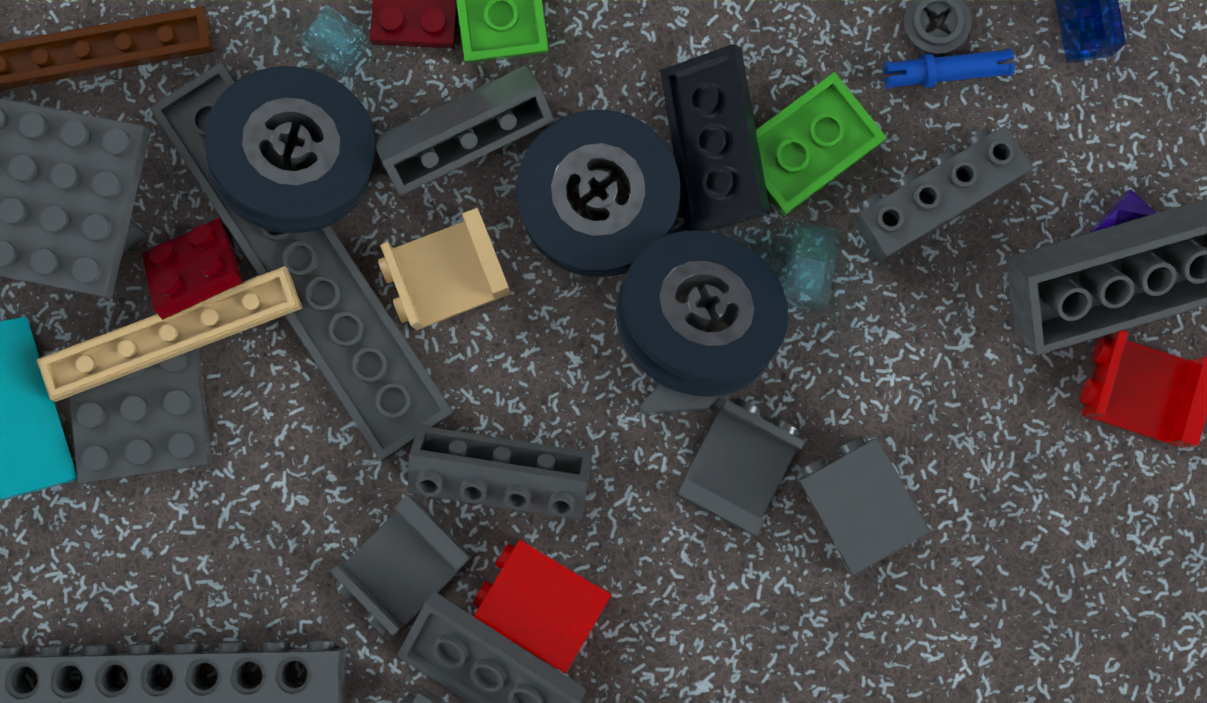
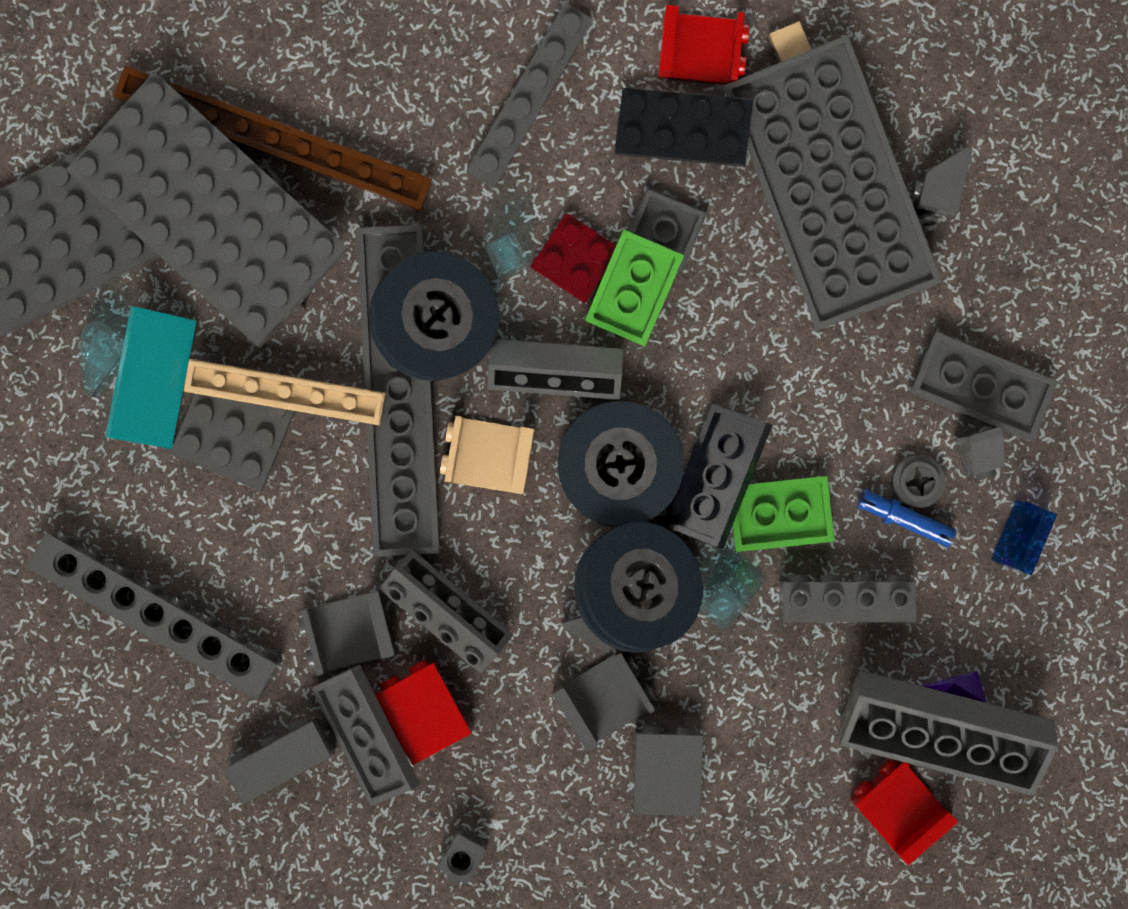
camera: 30 degrees right, 5 degrees up
(191, 268) = (323, 356): dark red plate -> none

